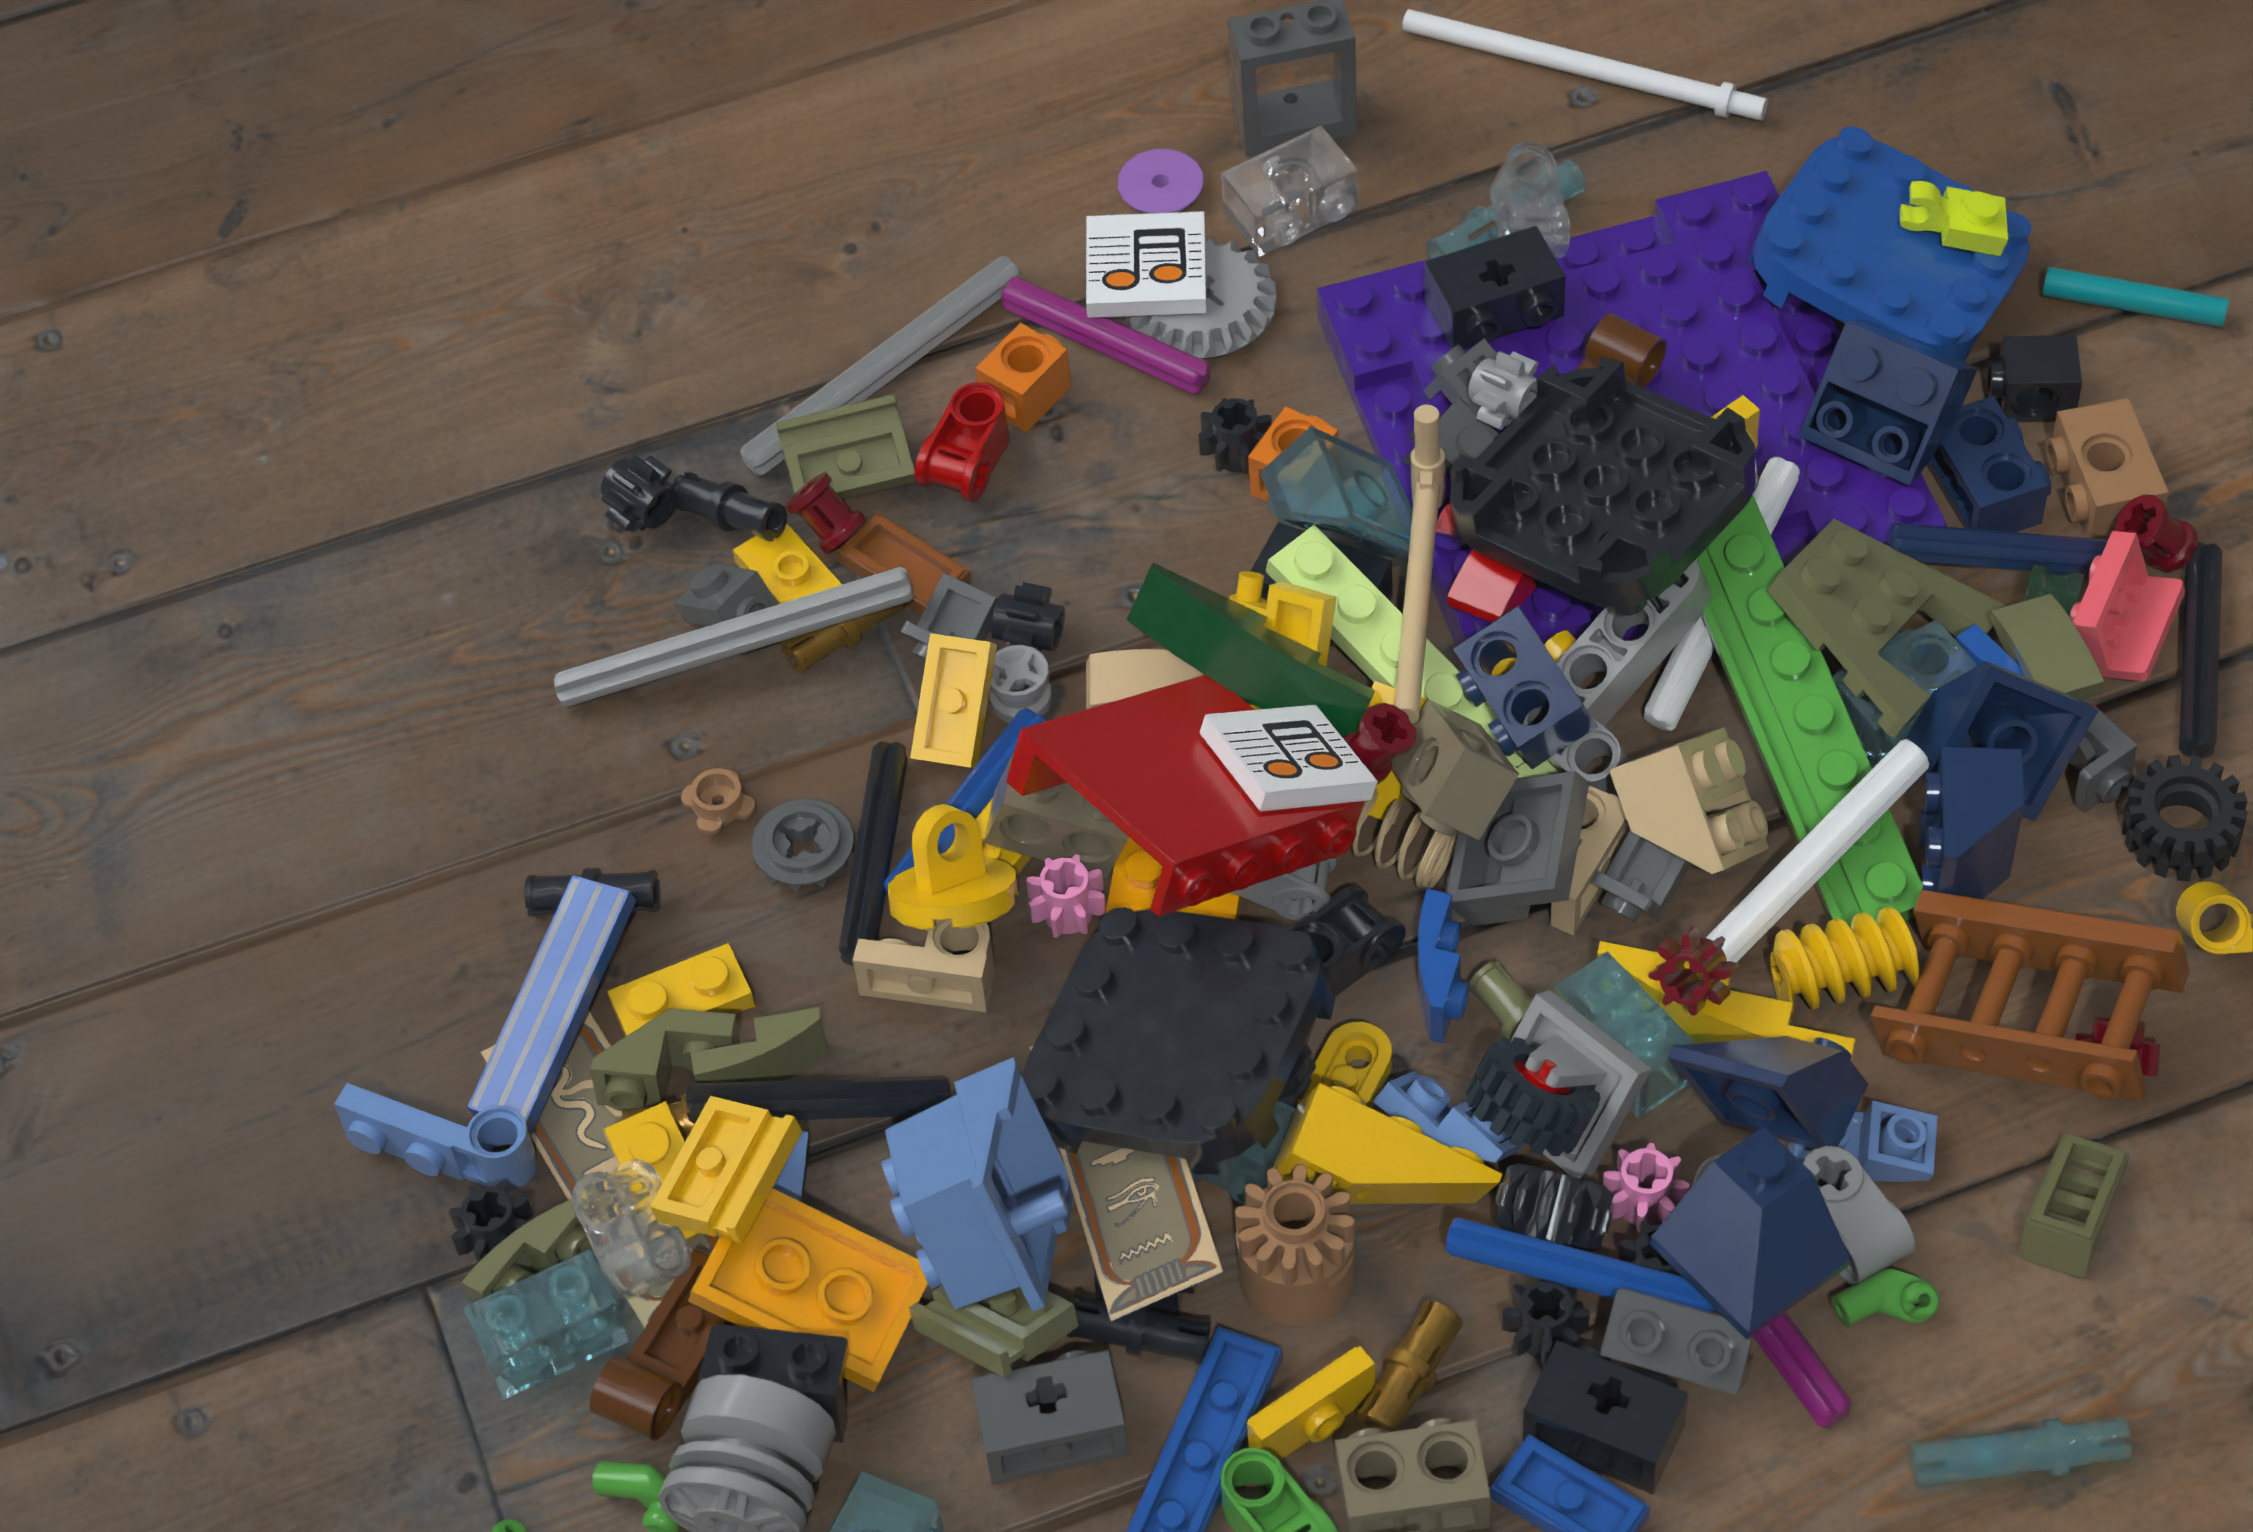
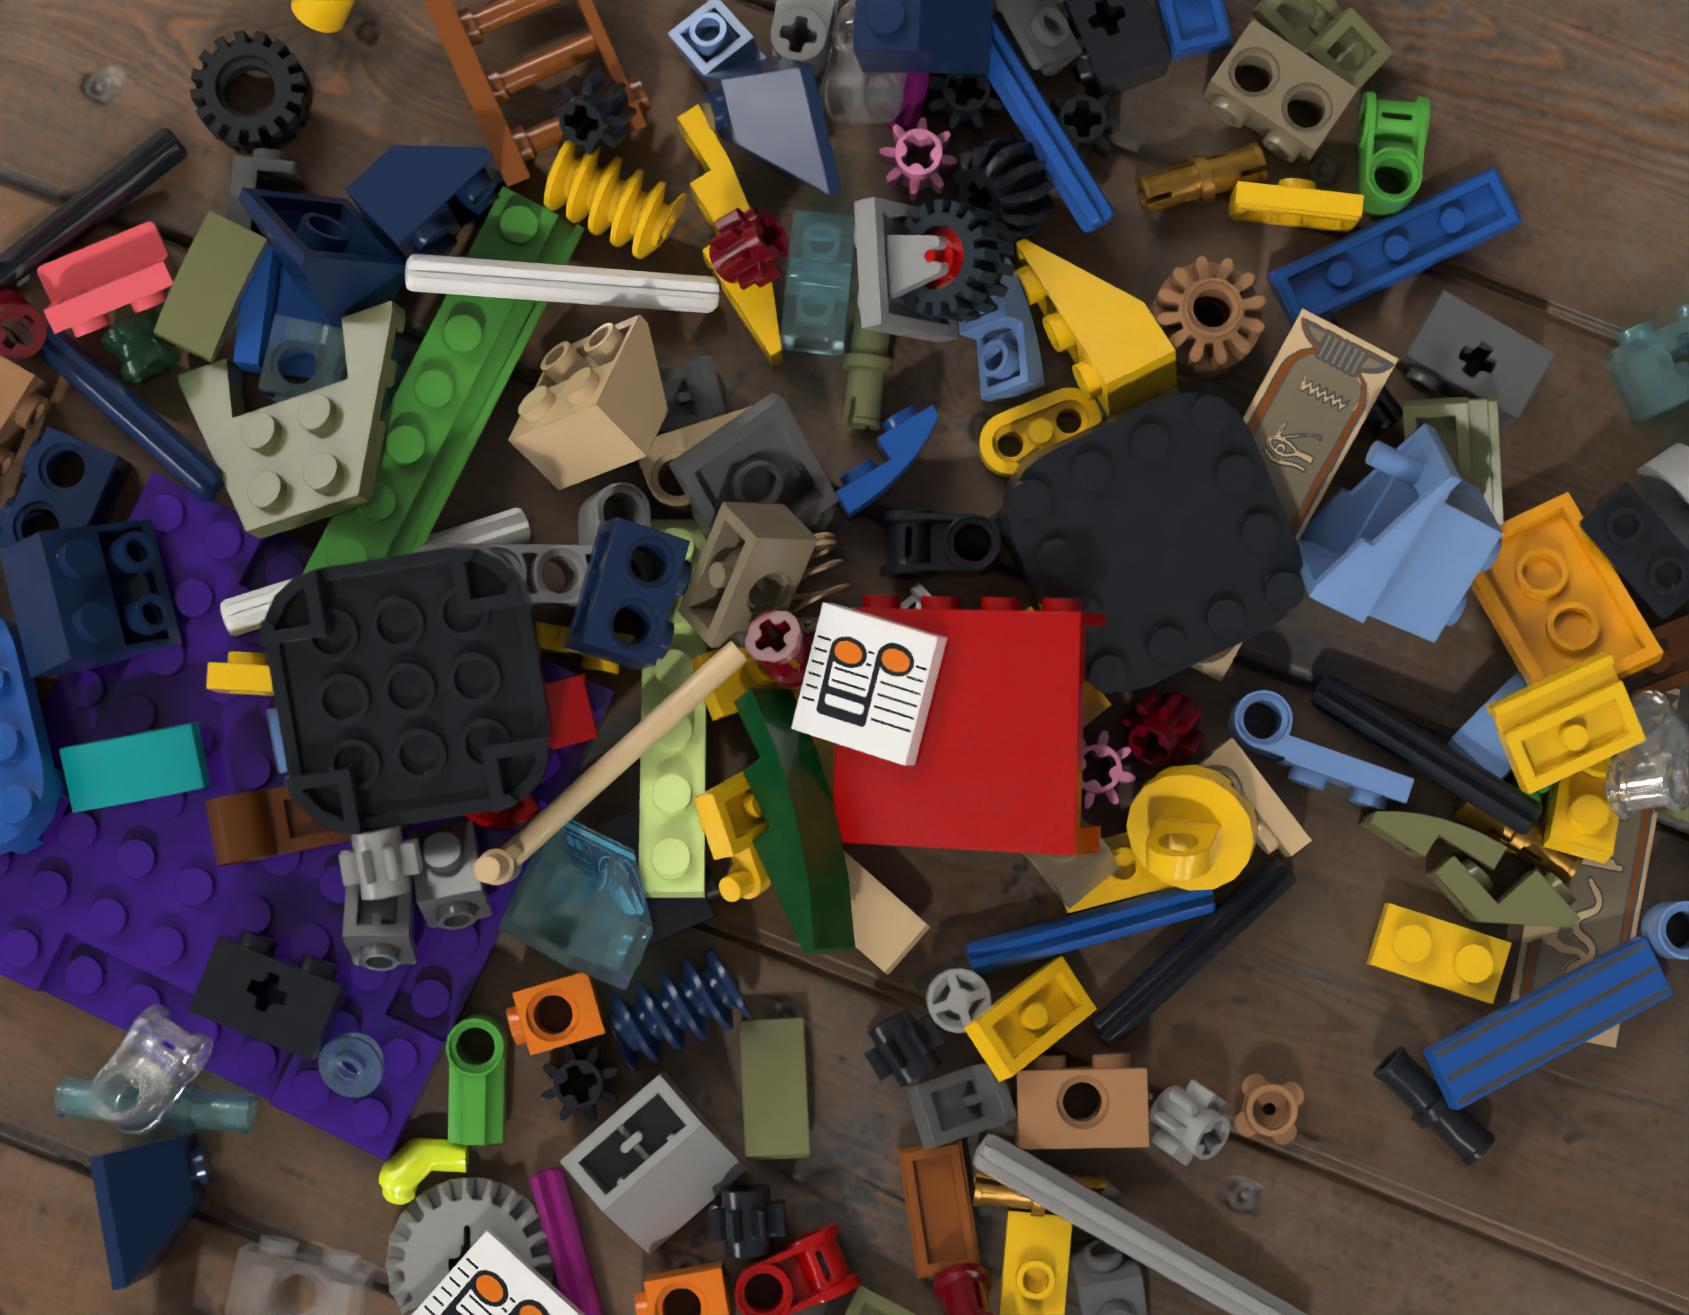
camera: 145 degrees left, 30 degrees up
(770, 735) = (1189, 1122): none -> light grey gear
(799, 822) = (1265, 1024): dark grey gear -> none
(831, 694) = (1116, 1122): none -> medium nougat brick
(911, 1031) = (1314, 764): none -> medium blue plate
(1032, 446) = (747, 1220): none -> black gear
(1039, 958) = (1164, 729): none -> dark red gear
(1097, 536) = (774, 1089): none -> olive slope
(1137, 425) = (654, 1163): none -> light grey slope
(1213, 518) = (676, 1009): none -> dark blue piece
(1297, 323) = (415, 1161): none -> neon yellow arm
(1308, 382) = (477, 1086): none -> bright green piece
(1398, 303) = (359, 1051): none -> clear light blue plate
(1449, 145) = (147, 1201): none -> dark blue slope
(1735, 337) = (135, 767): none -> teal slope
(1915, 972) = (593, 111): none -> black gear

